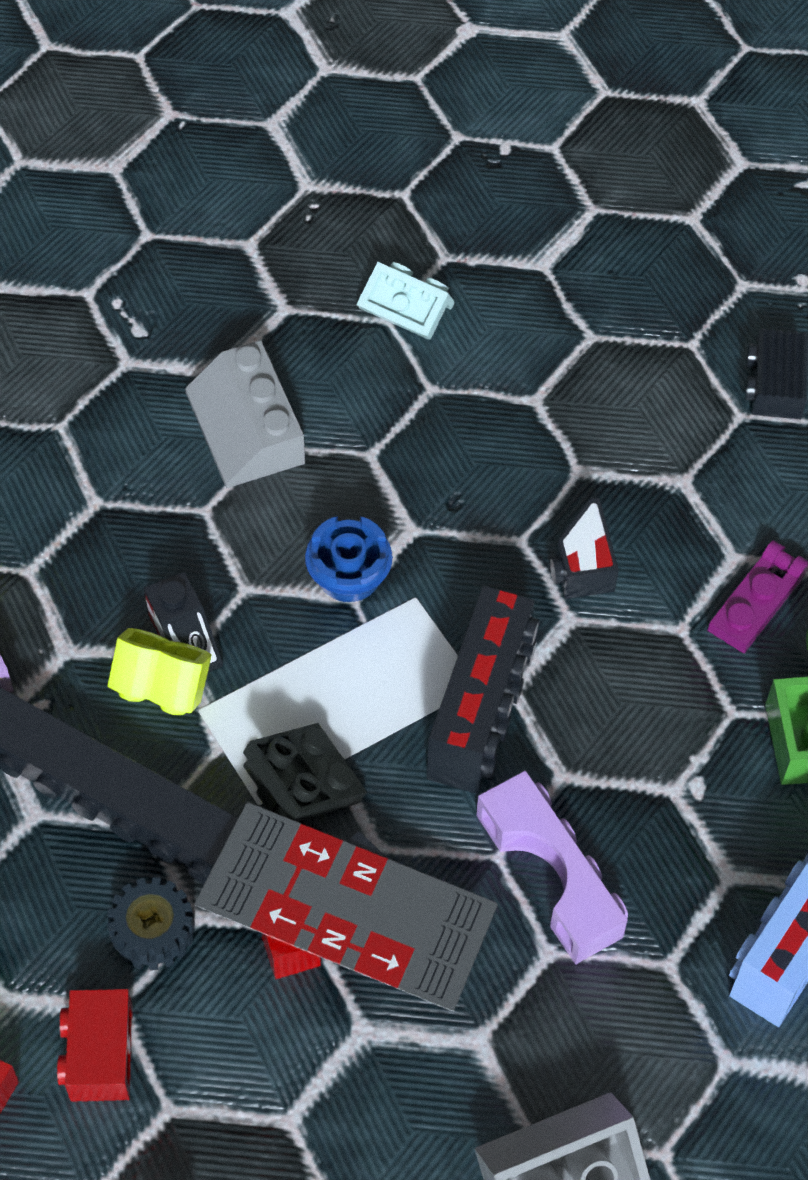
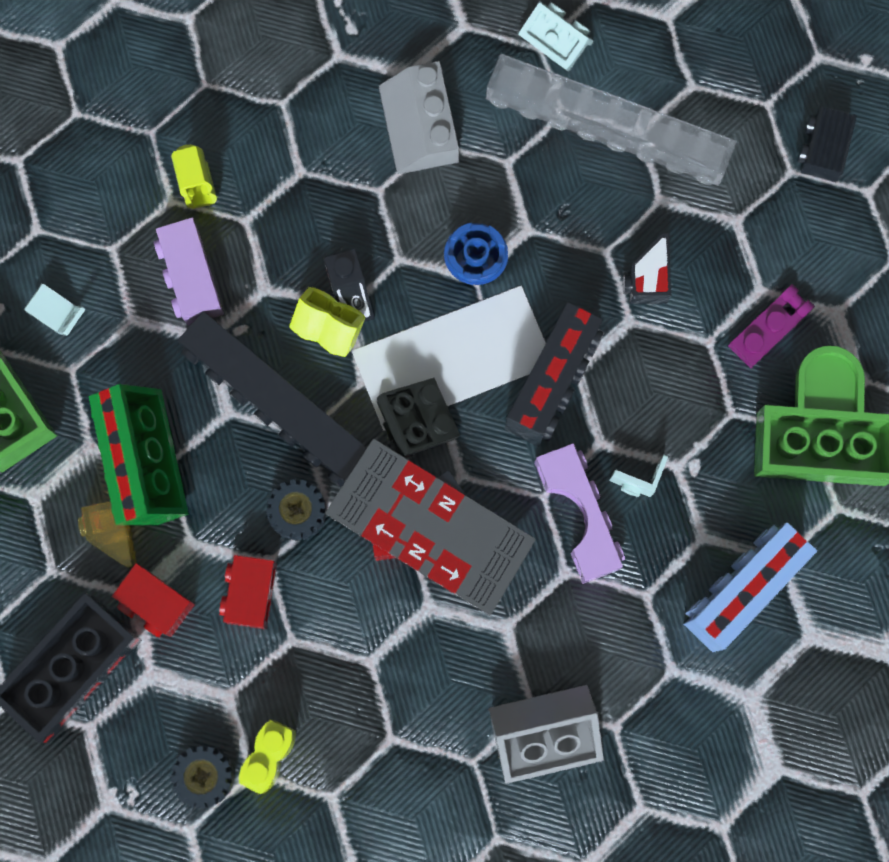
camera: 10 degrees right, 20 degrees up
(494, 383) = (610, 120): none -> clear brick
(621, 816) = (635, 486): none -> light aqua bracket

